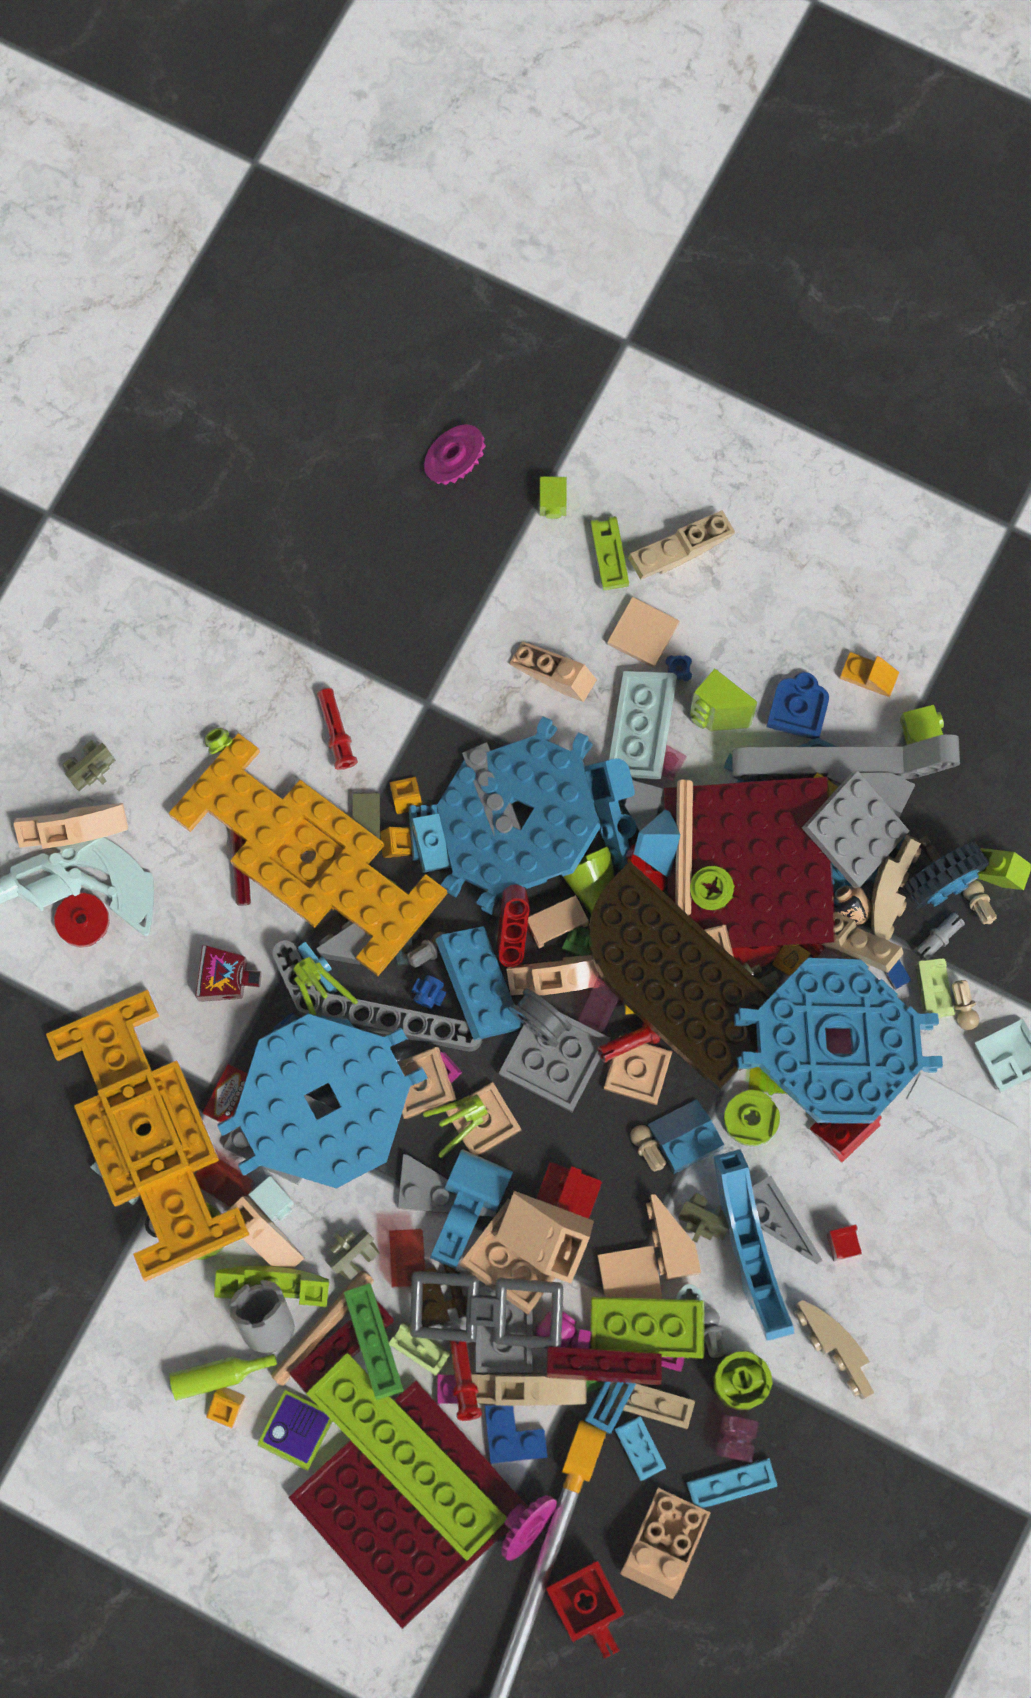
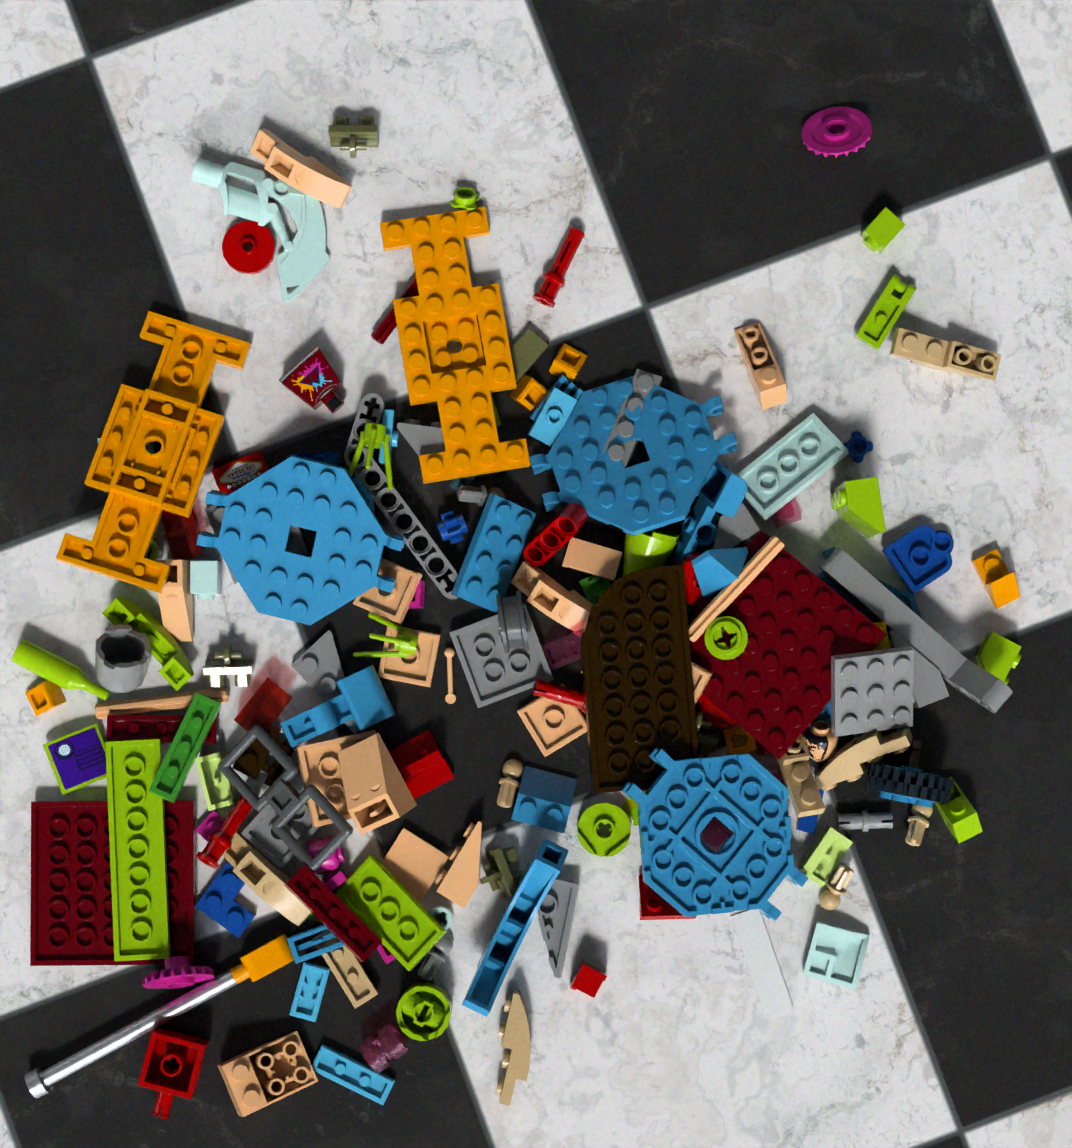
camera: 40 degrees right, 10 degrees up
(544, 1124) = (450, 697): none -> light nougat hinge
(643, 632) = (855, 395): light nougat tile -> none

